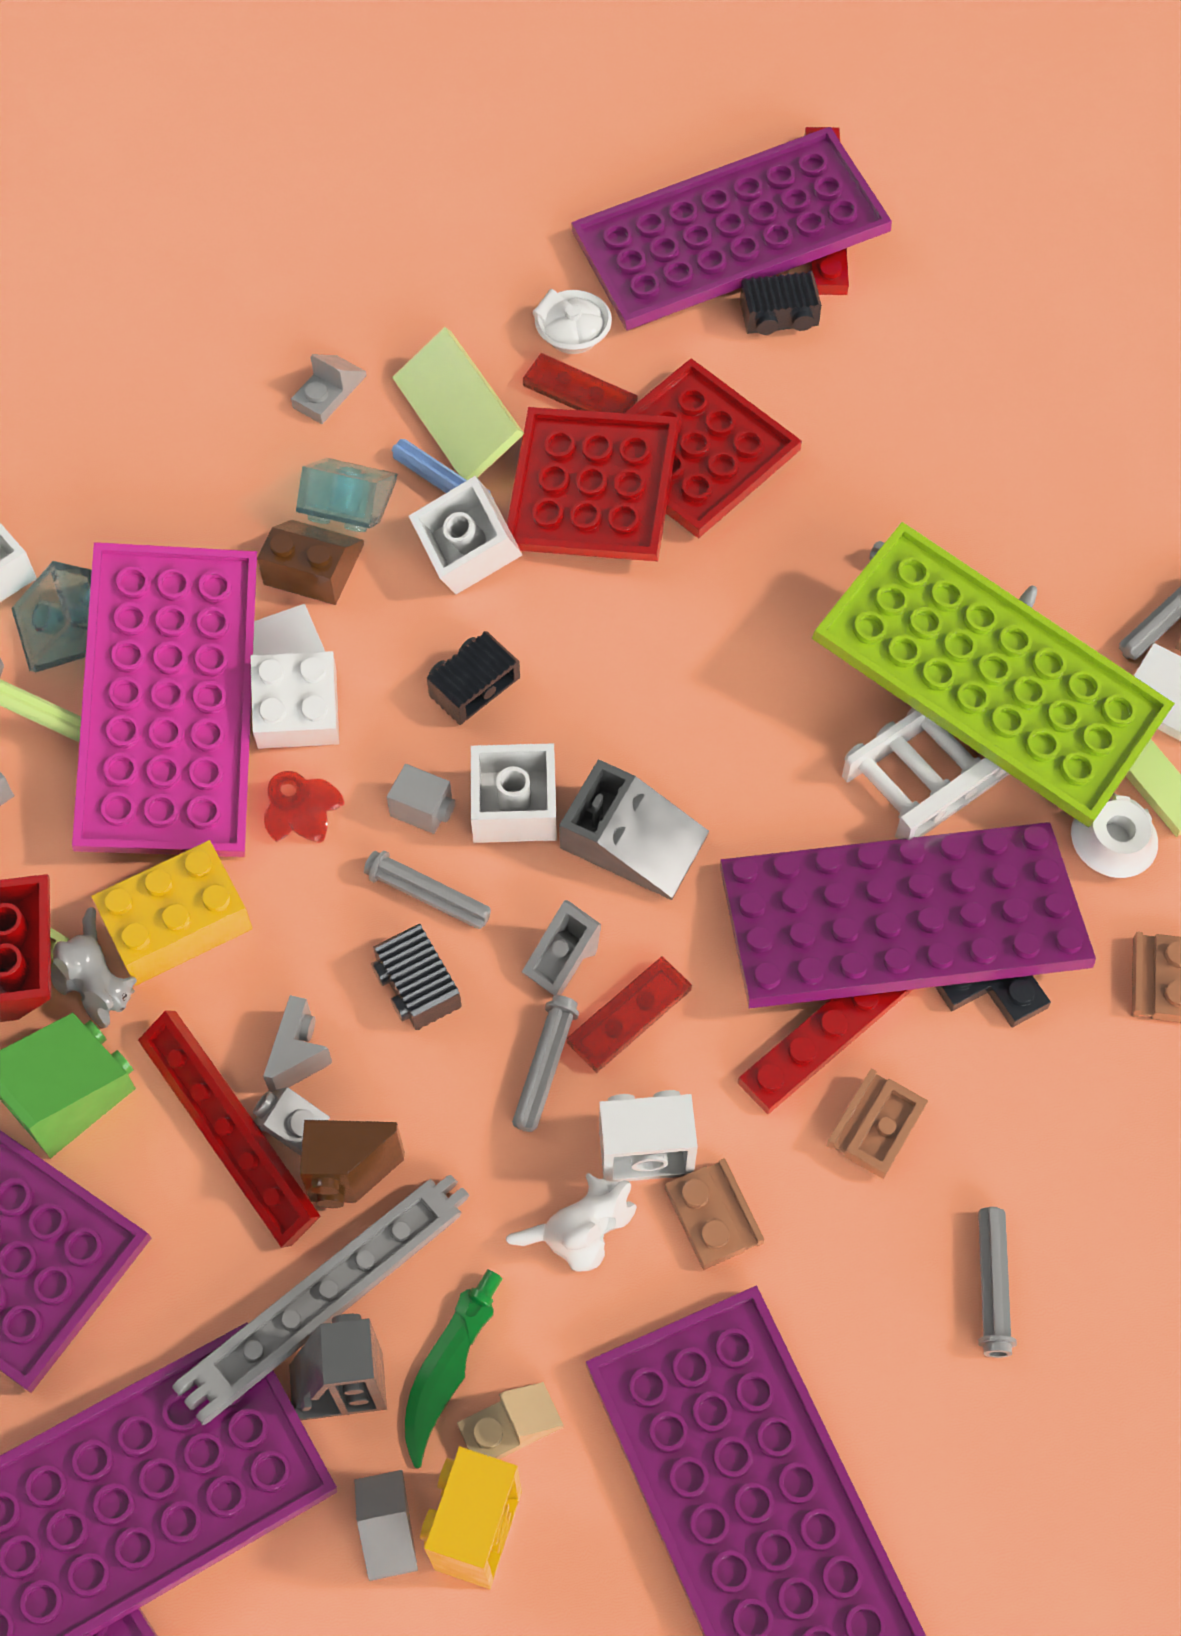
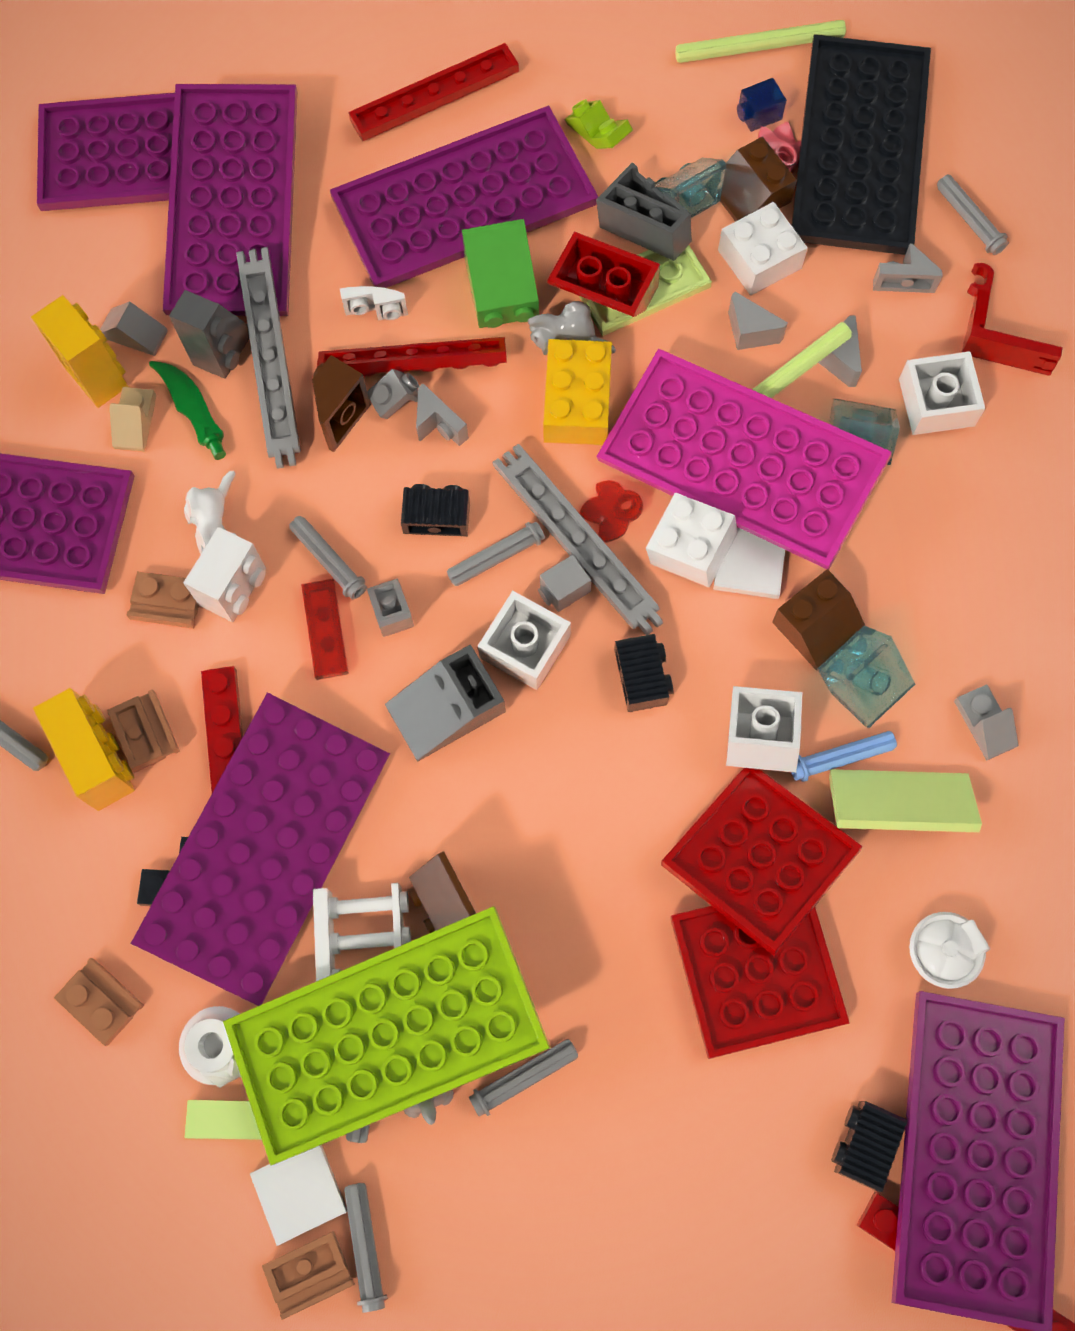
camera: 125 degrees right, 10 degrees up
(170, 1212) = (361, 299): none -> white slope
(354, 824) = (579, 540): none -> light grey hinge
(576, 387) = (873, 916): clear red tile -> none
(829, 713) = (440, 893): none -> reddish brown slope
(944, 1150) = (85, 749): none -> yellow brick

